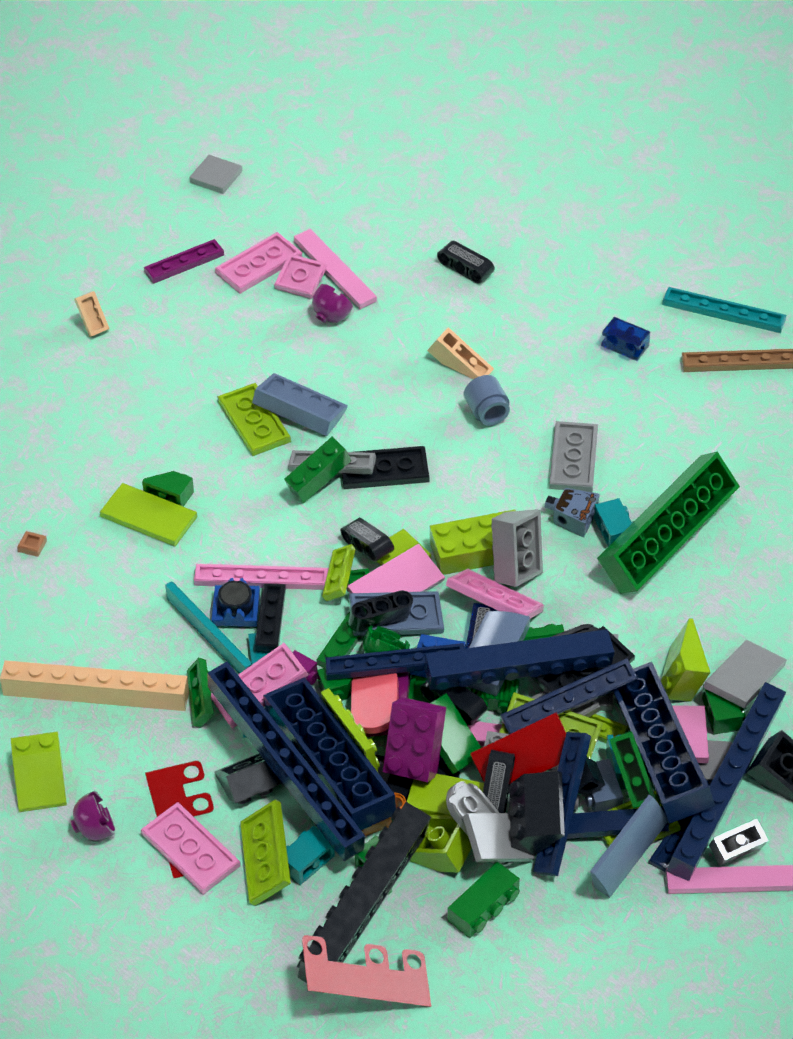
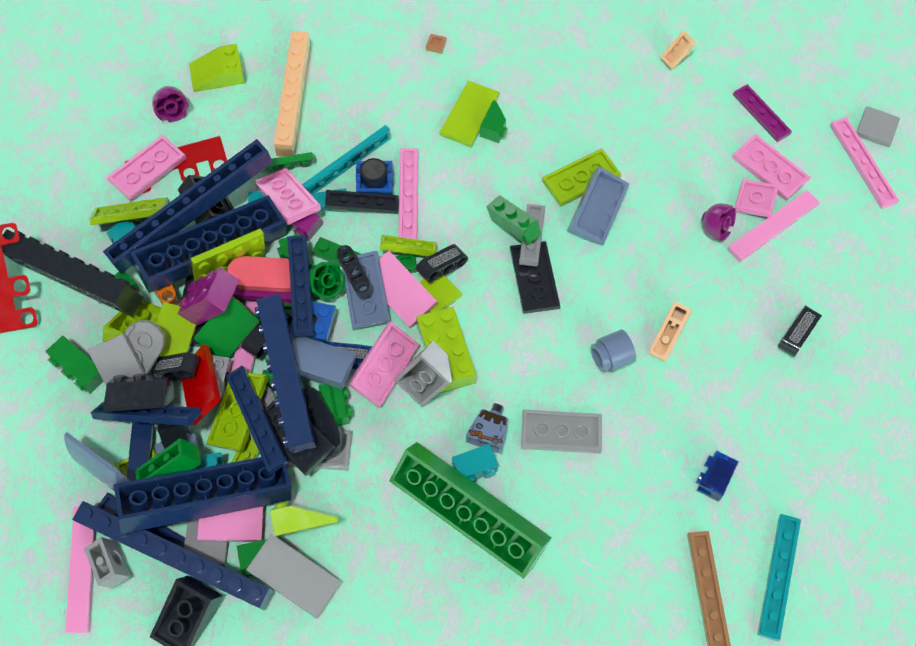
camera: 85 degrees right, 15 degrees up
(260, 191) = (864, 163): none -> bright pink tile

